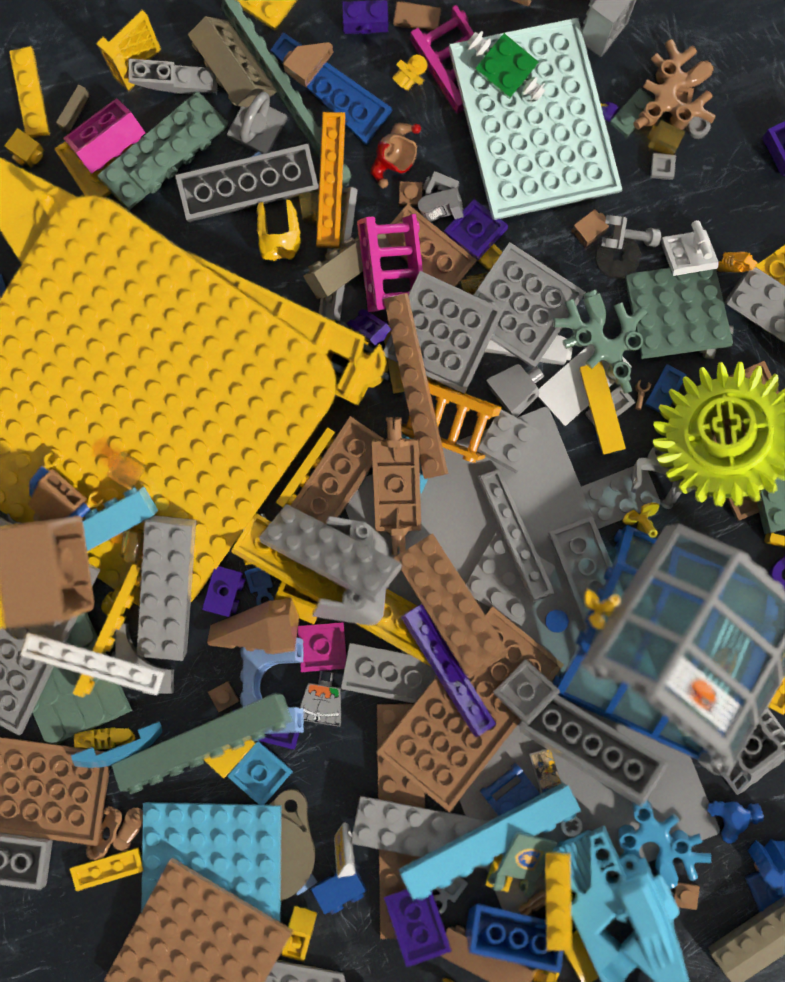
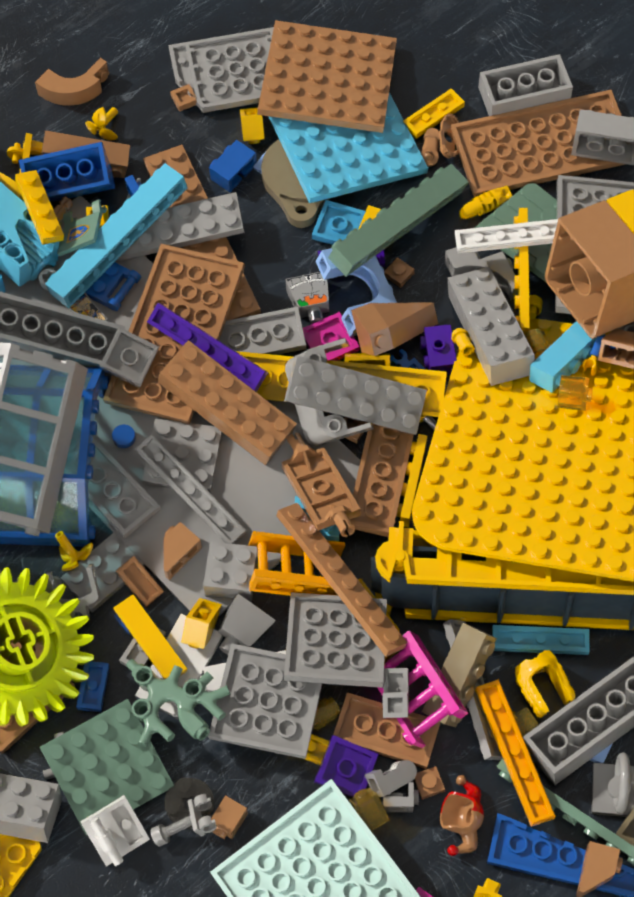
camera: 160 degrees right, 20 degrees down
(88, 758) = (486, 177): dark azure slope -> none
(200, 583) = (460, 337): none -> yellow pin
(261, 274) = (541, 638): none -> medium azure plate
(344, 851) = (237, 185): white slope -> none
(369, 326) = (408, 618): dark purple plate -> none
(411, 262) = (396, 693): none -> light grey slope
(417, 927) = (150, 151): dark purple plate -> none
(450, 894) = (131, 185): none -> blue plate
(471, 185) = (369, 808): none -> clear yellow brick
(547, 483) = (179, 548): none -> medium nougat slope
(551, 404) = (200, 623): none -> yellow slope
(592, 470) = (139, 581): none -> medium nougat tile
(606, 608) = (80, 429): yellow plant -> none
(641, 393) = (116, 673): medium nougat hand -> none
(736, 262) = (62, 833): light orange hinge -> none

